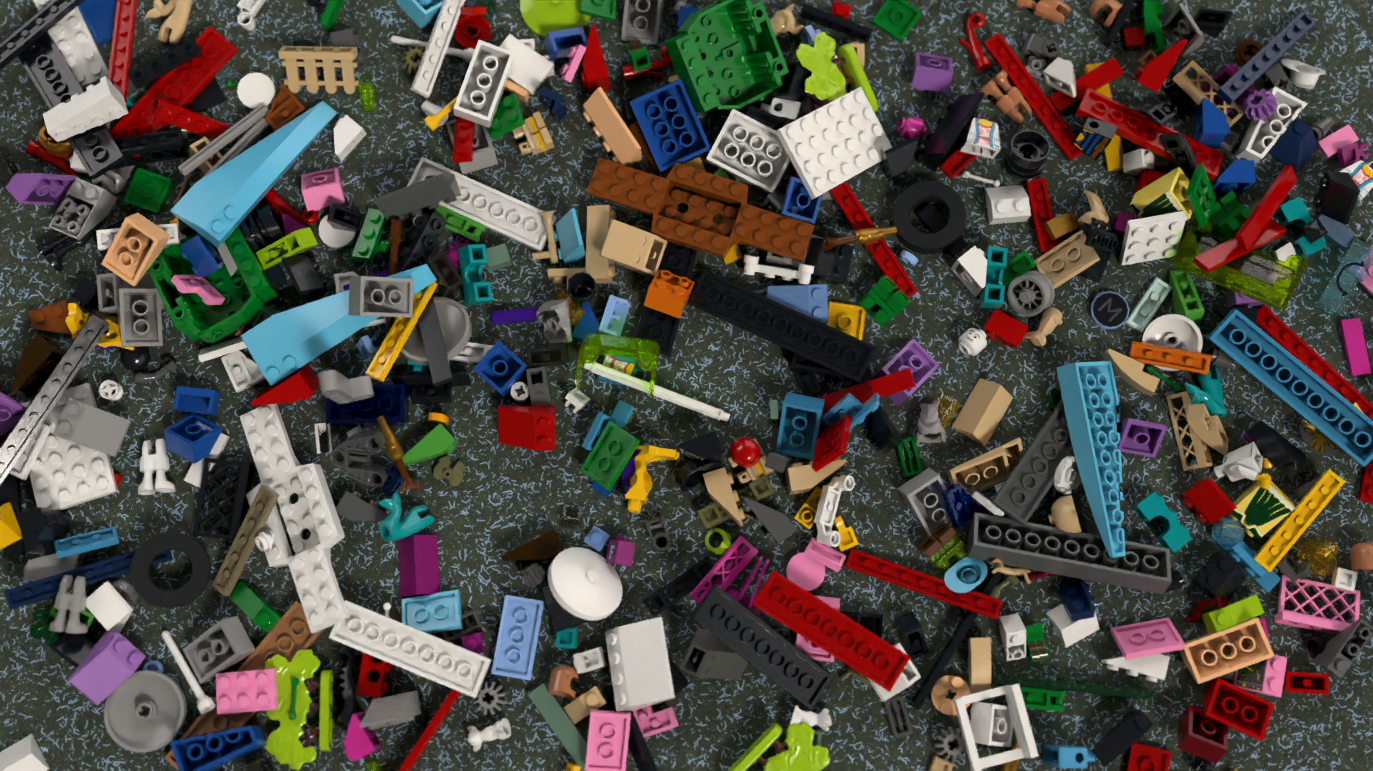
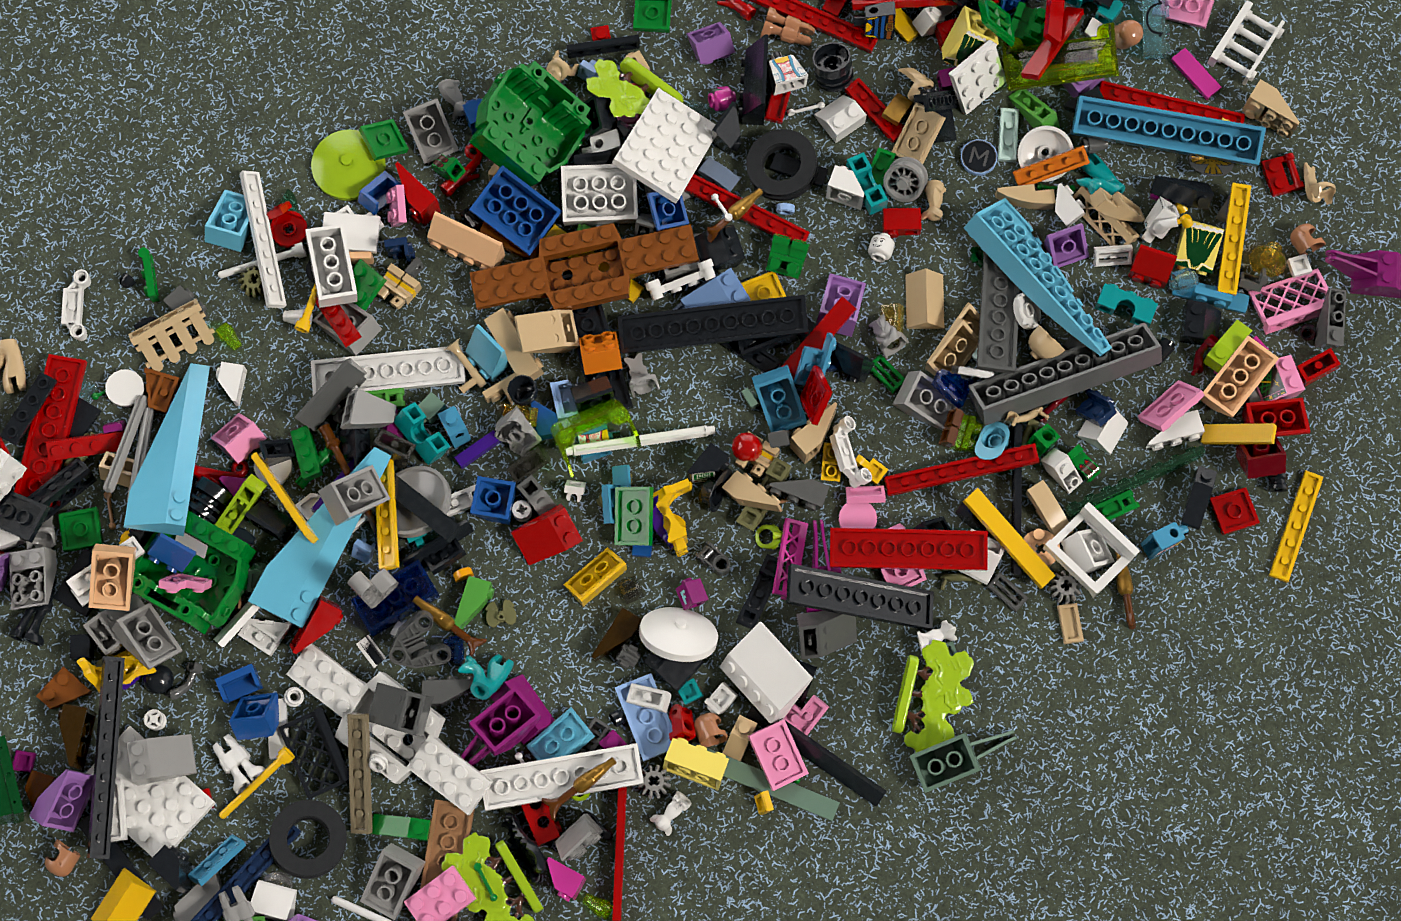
camera: 30 degrees left, 5 degrees down
(193, 487) = (284, 756): none -> yellow piece
(226, 118) = (114, 426): none -> magenta tile
(239, 444) = (293, 690): none -> white plate
(307, 508) = (400, 709): none -> dark grey slope
(324, 265) = (284, 498): none -> yellow tile
(386, 572) = (501, 726): none -> magenta slope
(419, 667) = (580, 785): none -> pearl gold piece
(437, 228) = (366, 411): none -> light grey slope
(506, 283) = (453, 426): none -> dark azure torso
(528, 622) = (649, 697): none -> white slope
(533, 704) = (695, 763): none -> light yellow slope
(542, 663) = (682, 723): none -> red leg
(548, 486) = (595, 576): none -> yellow slope
(556, 126) = (414, 268): none -> dark grey tile
(596, 538) = (663, 595): medium blue plate -> none
(639, 325) = (591, 393): none -> black slope
(691, 338) = (640, 381): none -> light grey hair
(851, 238) = (728, 217): none -> white hinge
(868, 193) = (717, 173): none -> sand blue slope
(927, 672) = (1008, 538): none -> yellow tile
(1013, 600) = (1044, 439): none -> green brick
(1162, 401) = (1066, 206): none -> white slope
(1179, 467) = (1113, 252): none -> white tile
(1195, 703) = (1239, 434): none -> yellow tile
(1315, 276) = (1128, 34): none -> nougat helmet

